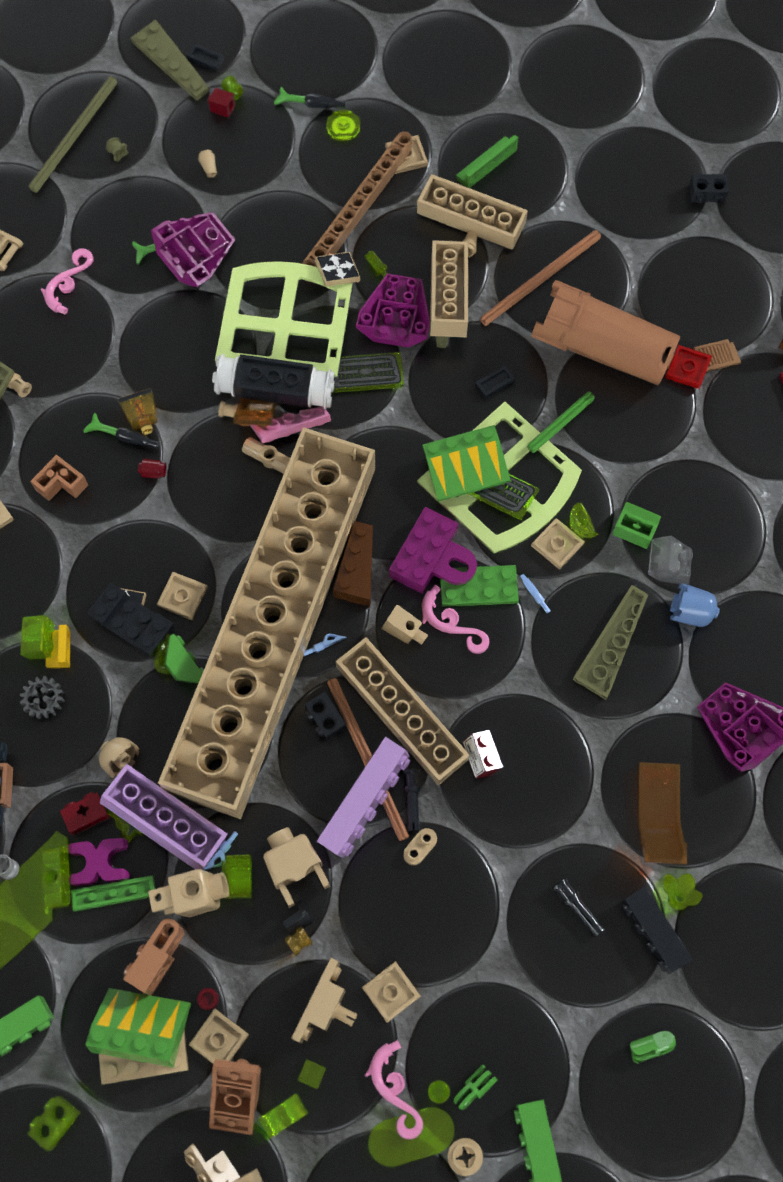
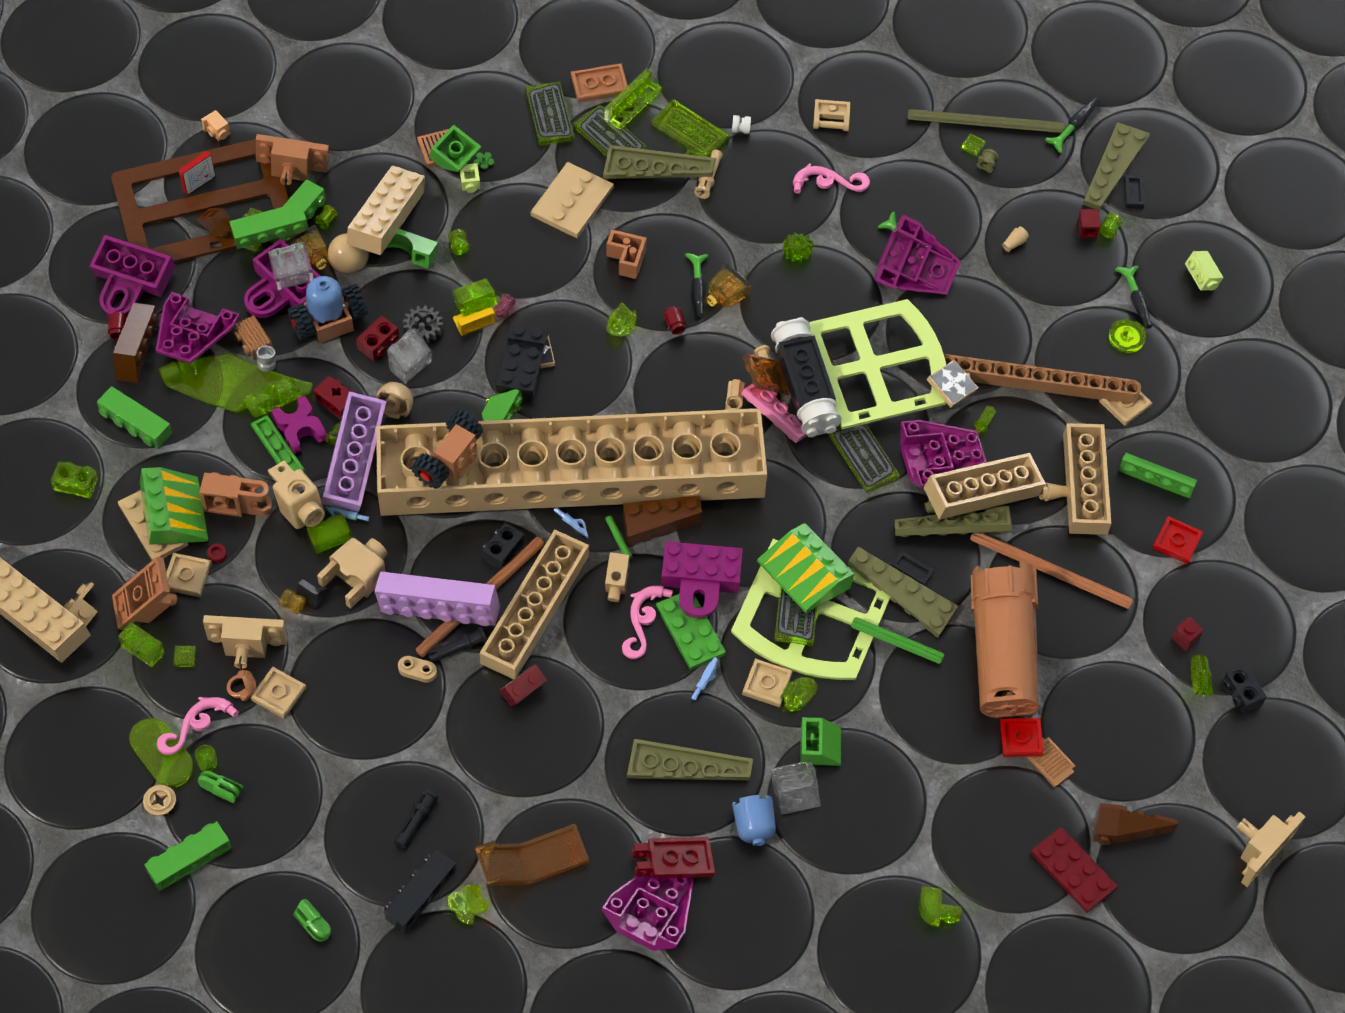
camera: 65 degrees right, 10 degrees down
(32, 749) = (375, 336): none -> dark red brick
(58, 613) = (504, 305): none -> clear pink bush
(75, 724) = (409, 355): none -> clear slope
(92, 153) = (973, 144): none -> clear neon green tile
(114, 69) = (1075, 123): none -> piece
(127, 335) = (797, 247): none -> clear neon green gear
(130, 516) = (621, 321): none -> clear neon green hat
(182, 596) = (565, 393): tan tile -> none
(234, 714) = (453, 454): none -> brick
(313, 41) = (1204, 270): none -> yellowish green brick
(359, 610) = (618, 536): none -> bright green piece
(370, 1017) = (249, 682): none -> nougat piece
(480, 301) = (992, 520): none -> olive wing
(527, 390) = (917, 600): none -> olive wing
(552, 175) = (1177, 540): none -> red tile
(645, 204) = (1187, 634): none -> dark red brick
(684, 212) = (1201, 676): none -> clear neon green arm
(704, 688) = (674, 858): none -> dark red tile

